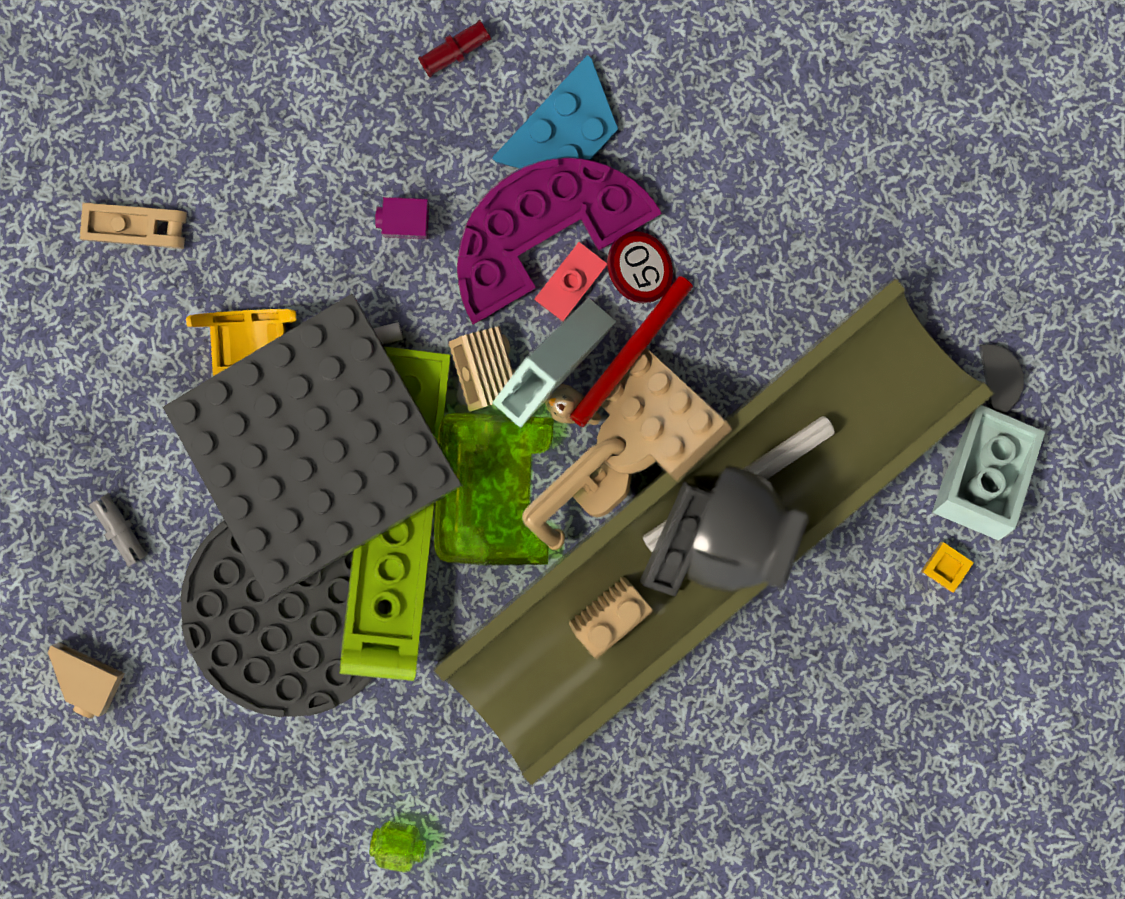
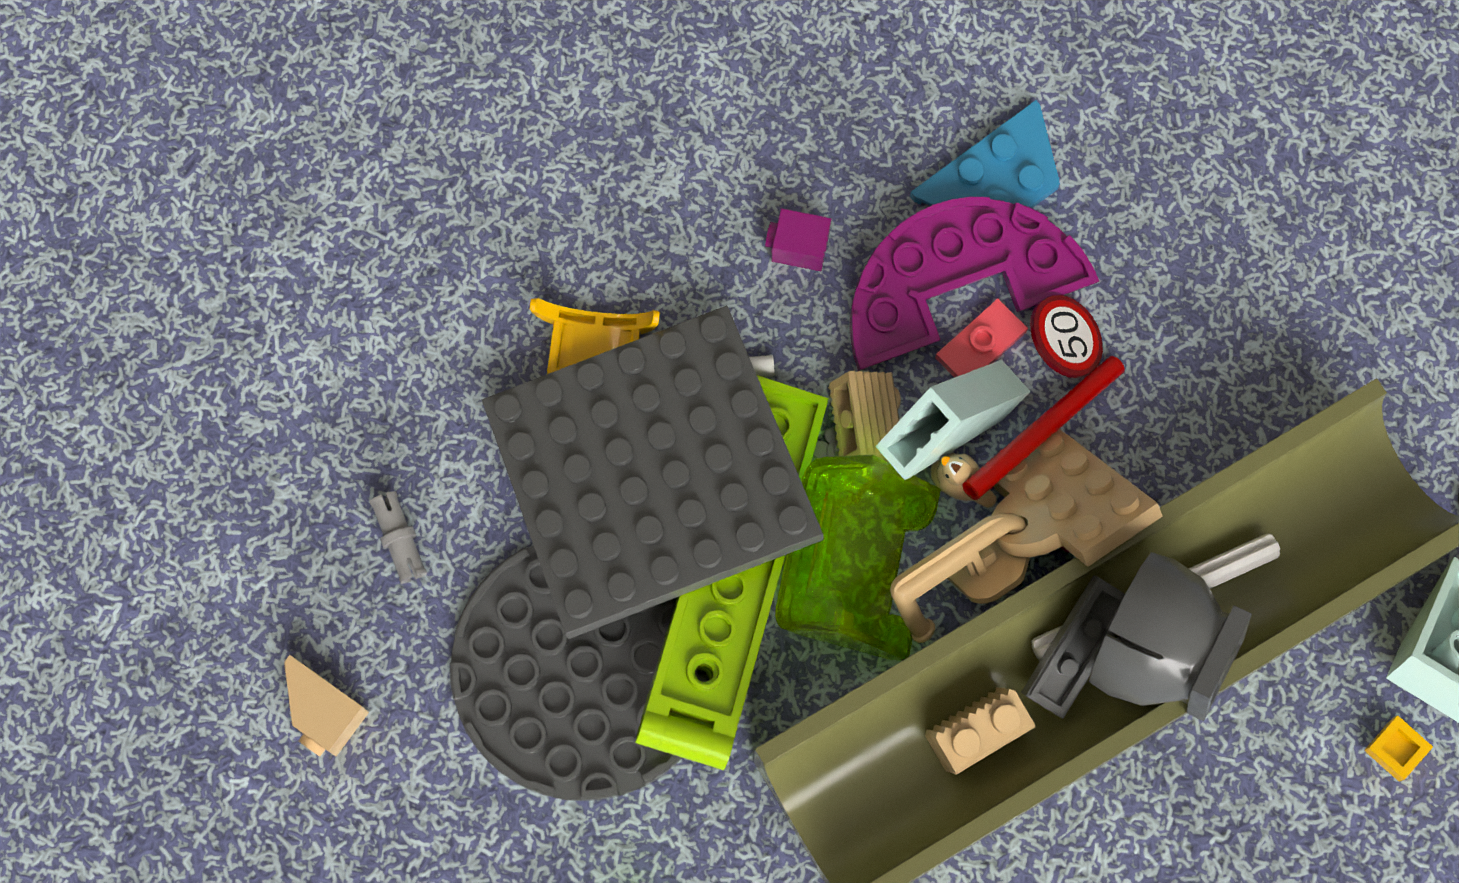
camera: 10 degrees right, 15 degrees down
(131, 225) = (486, 200): tan plate -> none
(454, 48) = (886, 70): dark red pin -> none

